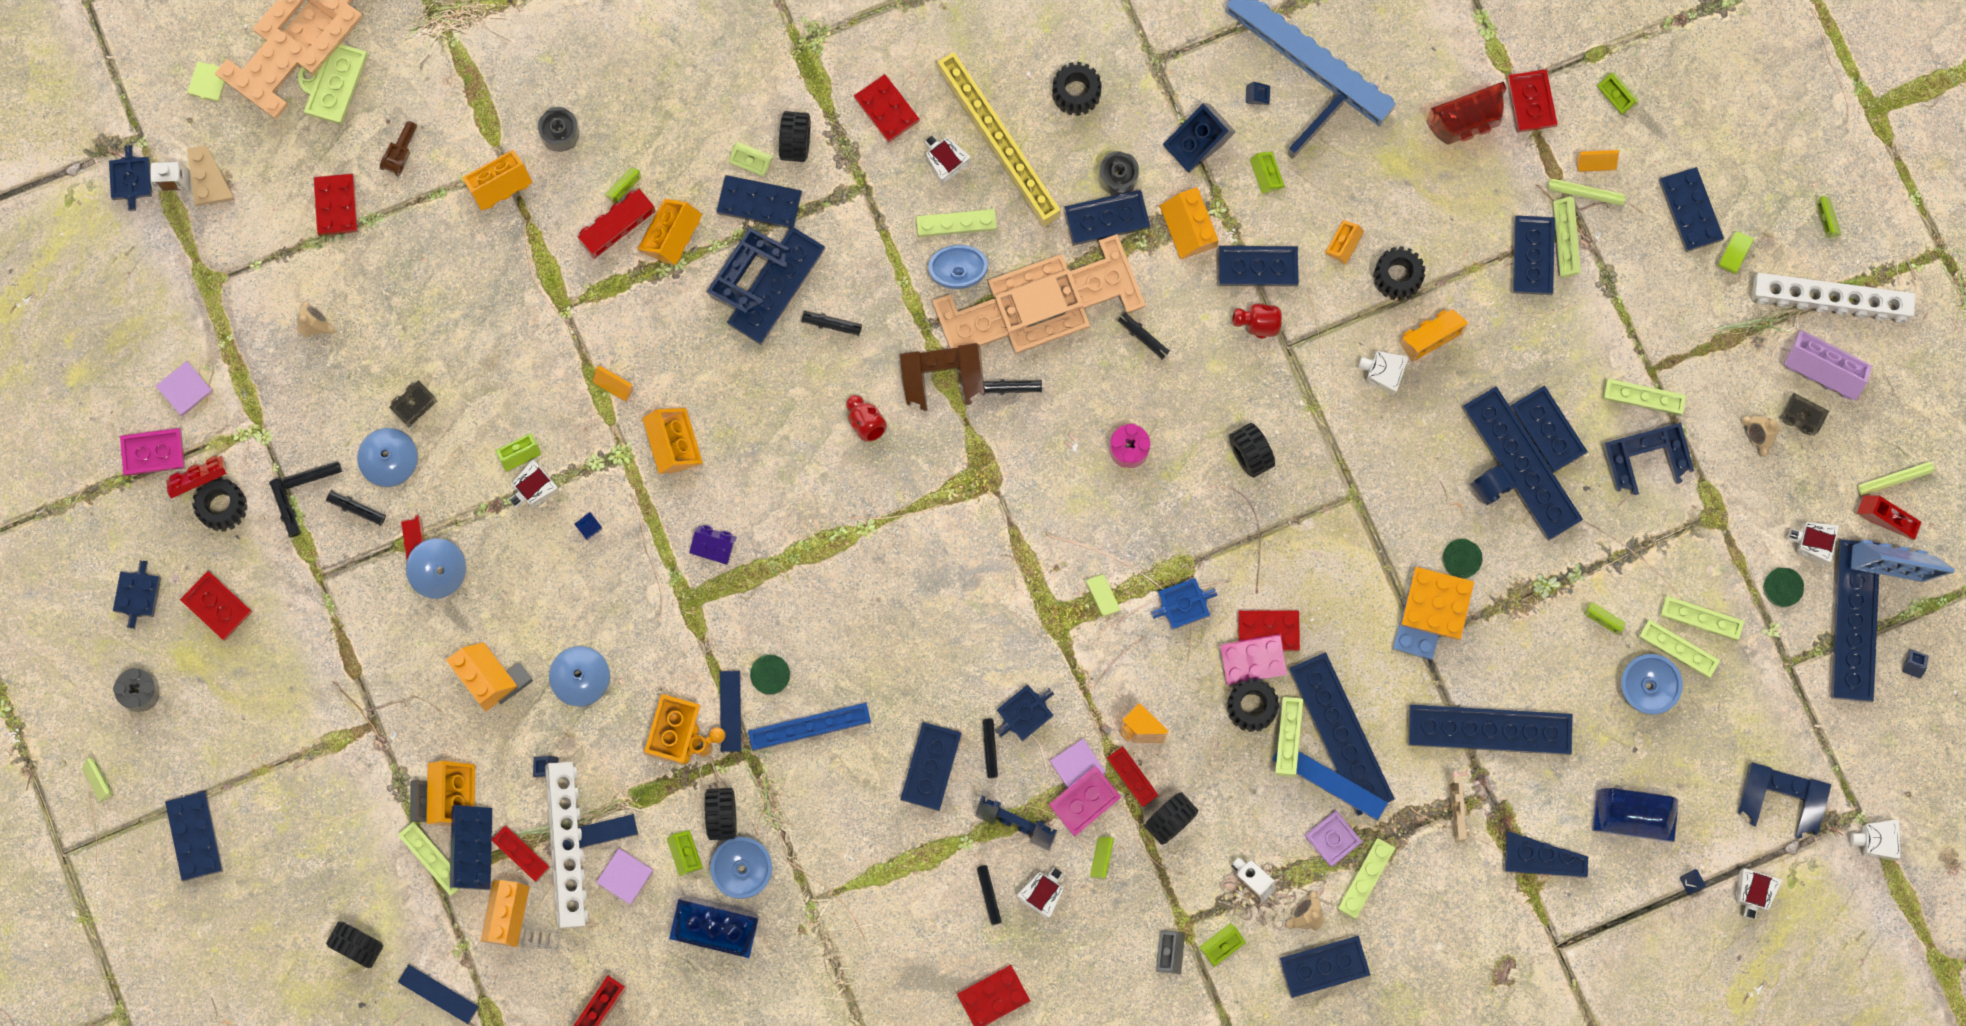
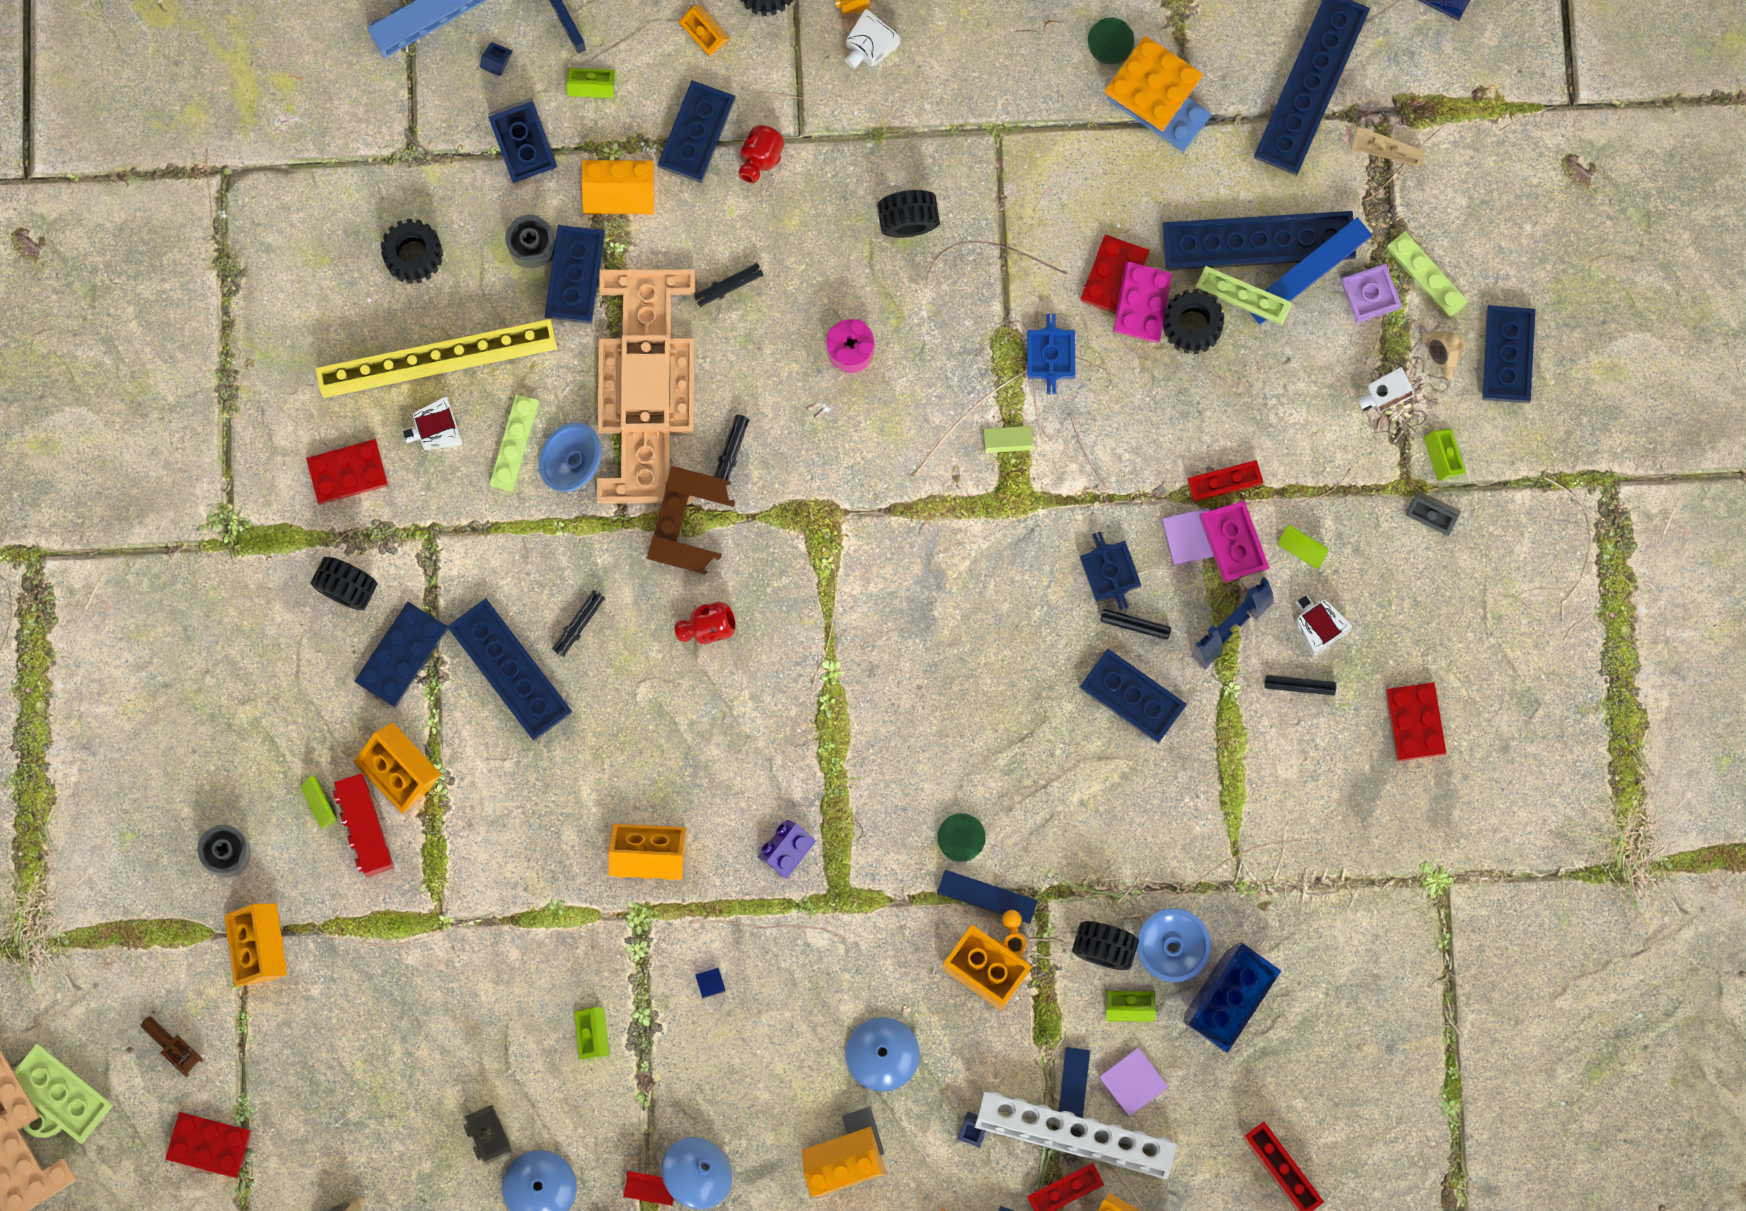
camera: 65 degrees left, 0 degrees up
(533, 486) = (641, 1029): torso -> none
(612, 383) = (553, 896): light orange slope -> none
(750, 159) = (346, 646): yellowish green slope -> none
(752, 245) = (452, 679): dark blue wedge -> none
(809, 726) = (1037, 815): blue tile -> none
(1142, 727) = (1174, 446): light orange slope -> none
(1171, 818) = (1290, 453): black tyre -> none
(1540, 858) = (1469, 87): dark blue wing -> none

